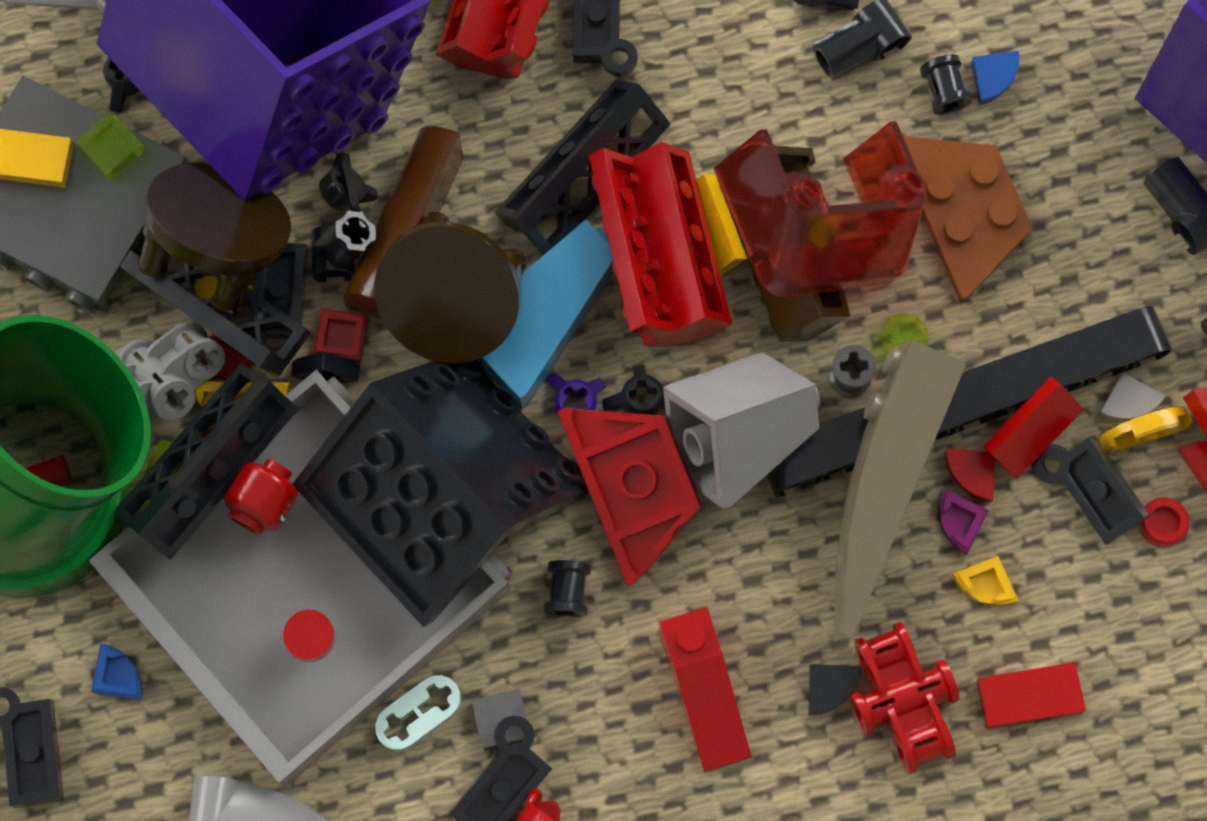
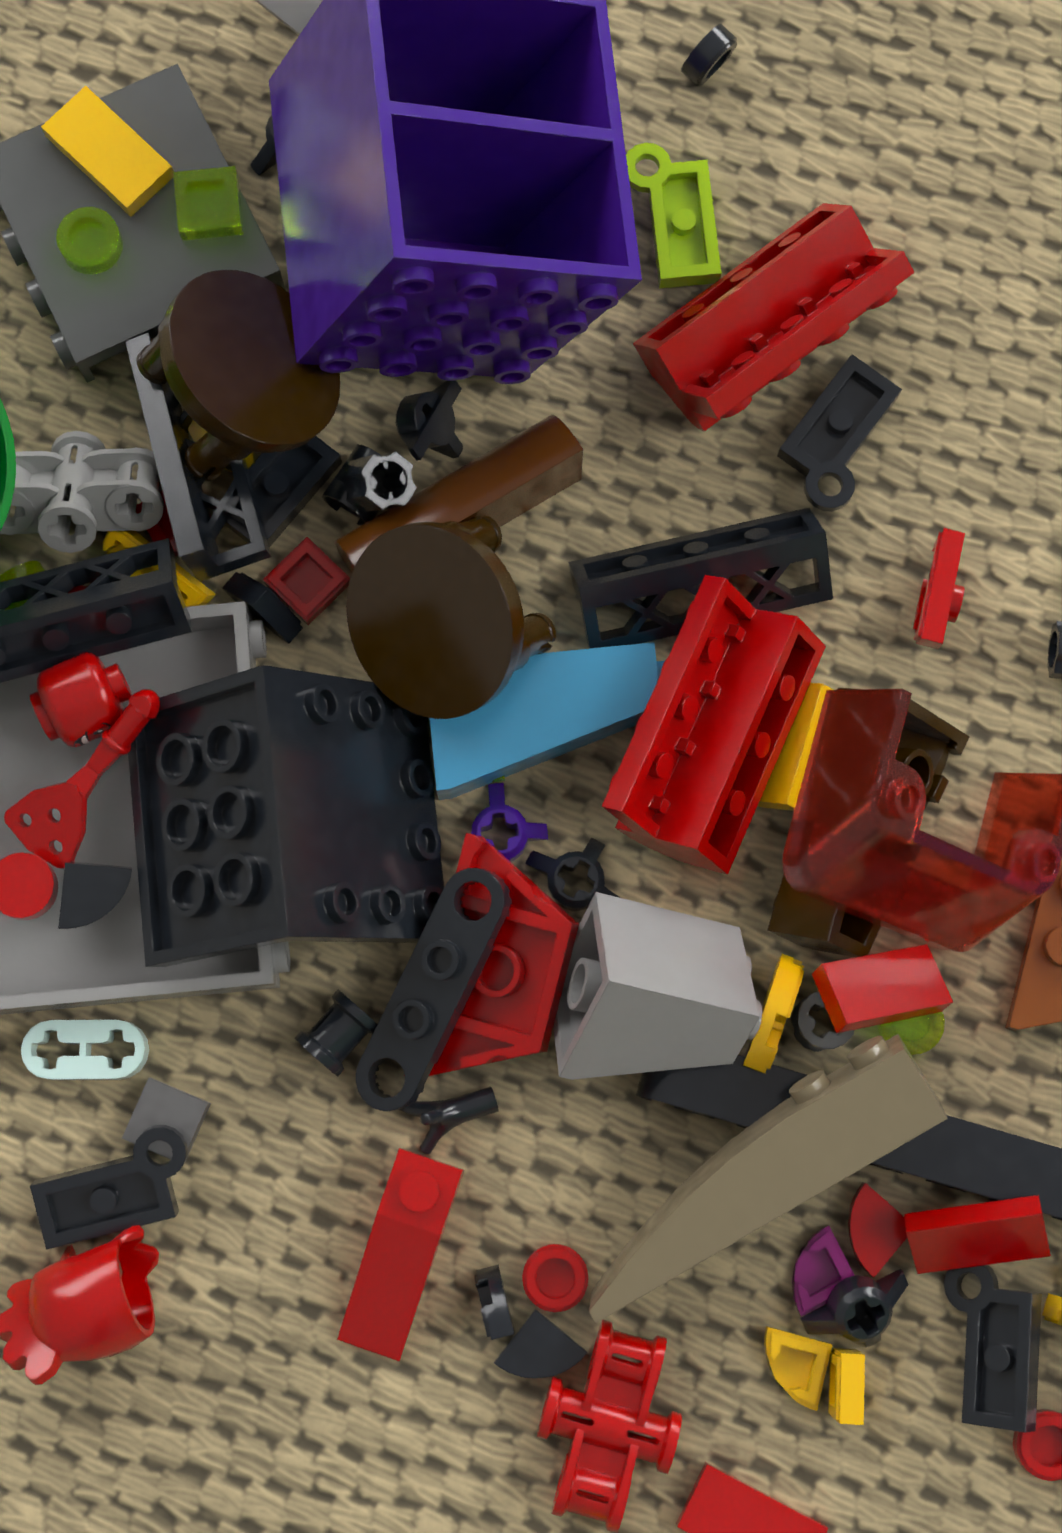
camera: 35 degrees right, 5 degrees up
(51, 219) = (89, 240): none -> clear neon green tile
(300, 556) = (72, 795): none -> red piece
(354, 608) = (90, 892): none -> black tile
(607, 518) = (433, 989): none -> black plate
(670, 589) = (449, 1113): none -> black bar
(735, 77) = (939, 595): none -> red plate
(787, 682) = (494, 1302): none -> black tile
(807, 638) = (555, 1278): none -> red tile
(817, 371) = (775, 1011): none -> yellow tile
(872, 325) = (881, 988): none -> red tile
(997, 523) = (858, 1308): none -> black piece
(1024, 571) = (846, 1386): none -> yellow tile

